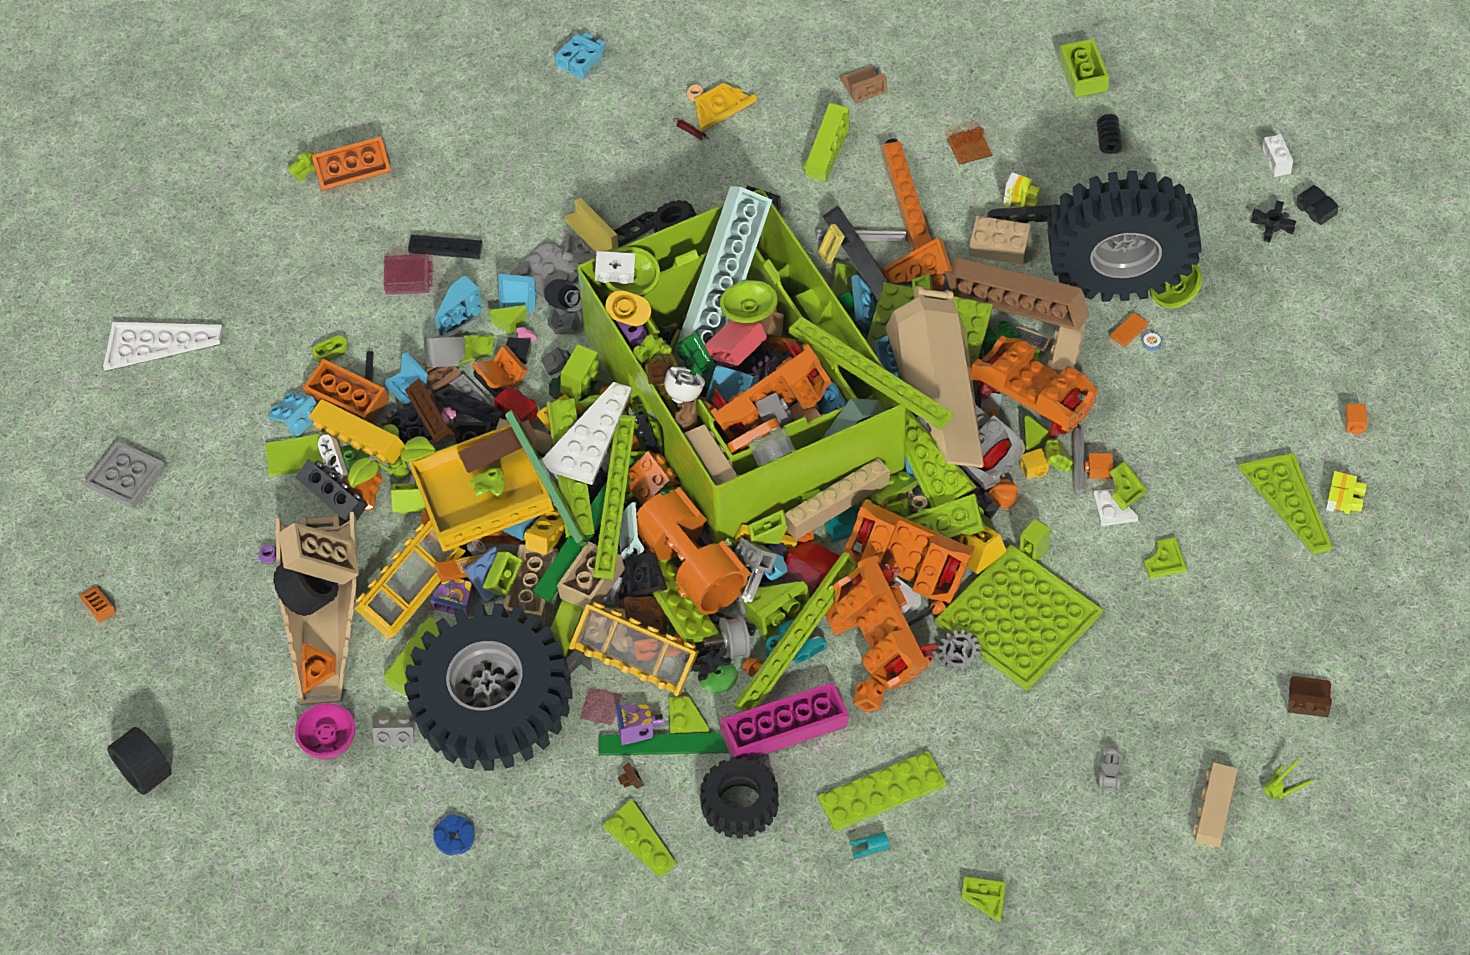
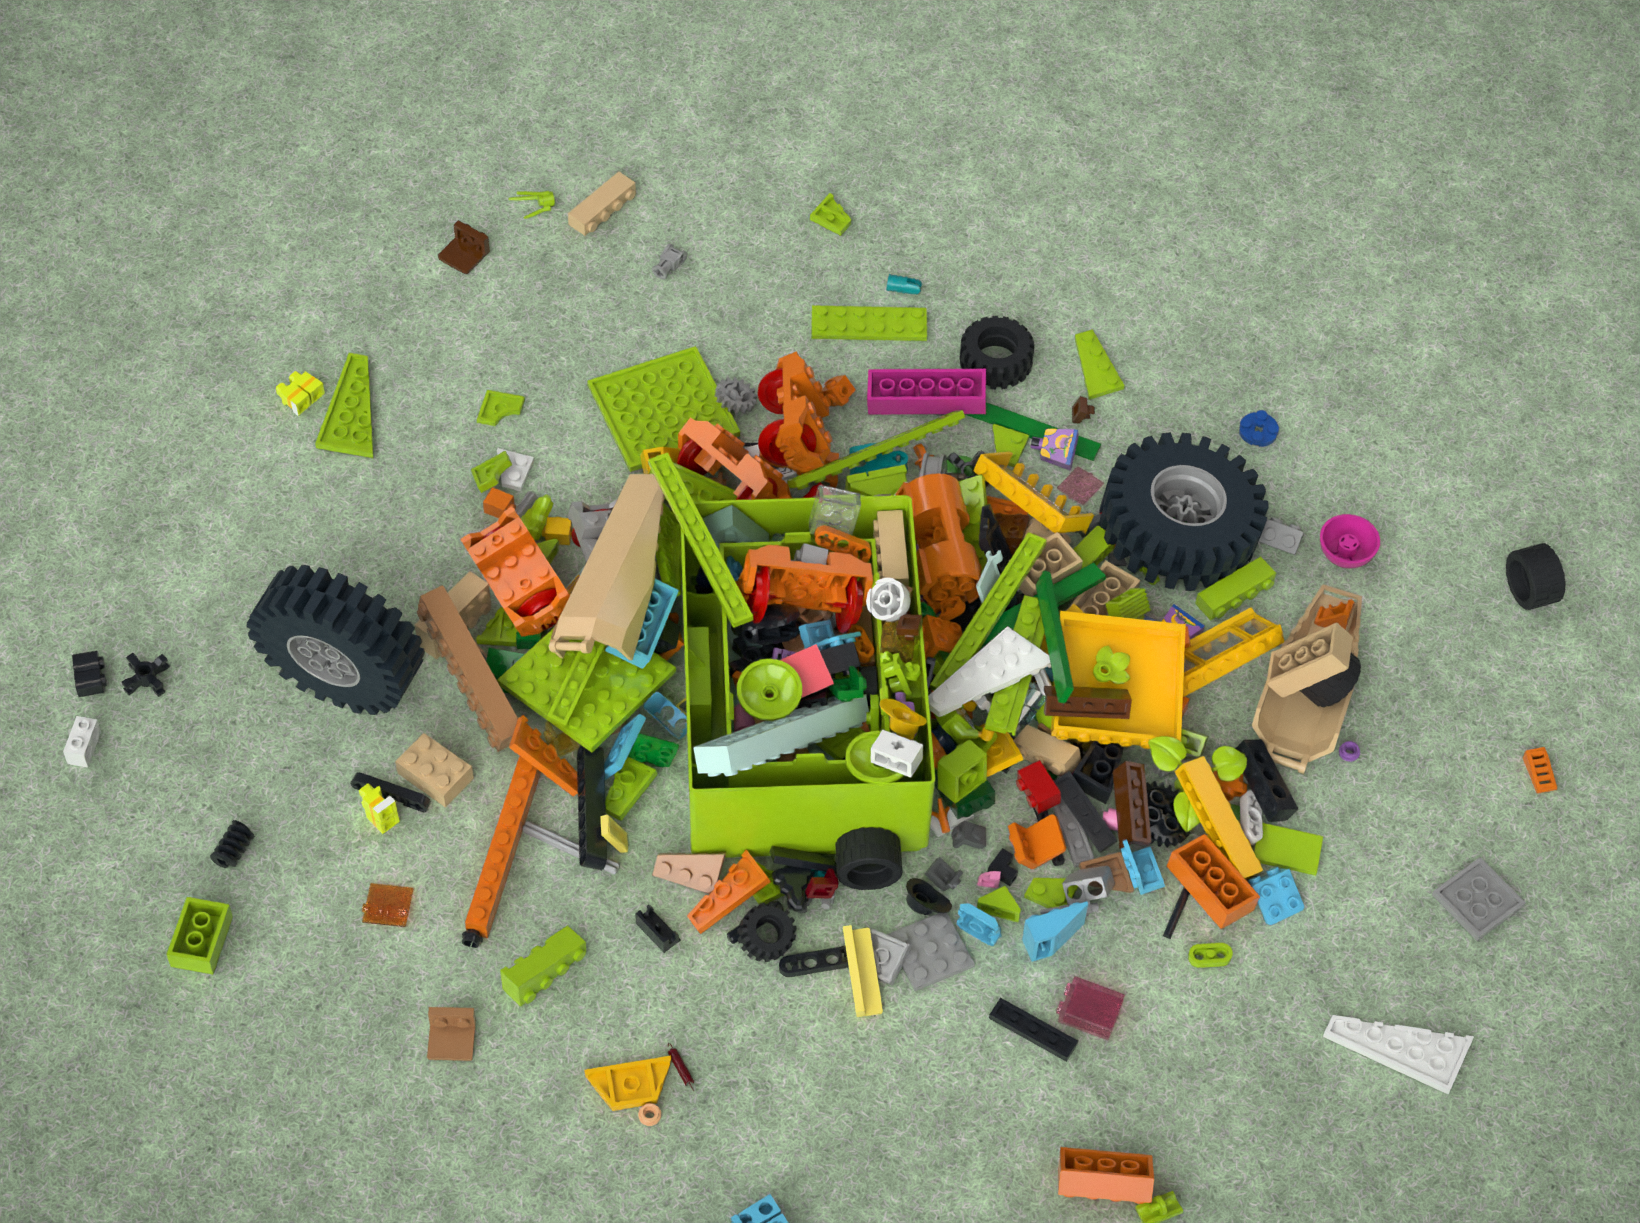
camera: 160 degrees left, 0 degrees up
(1035, 540) = (609, 452): lime brick -> none
(1355, 418) = (233, 451): orange brick -> none

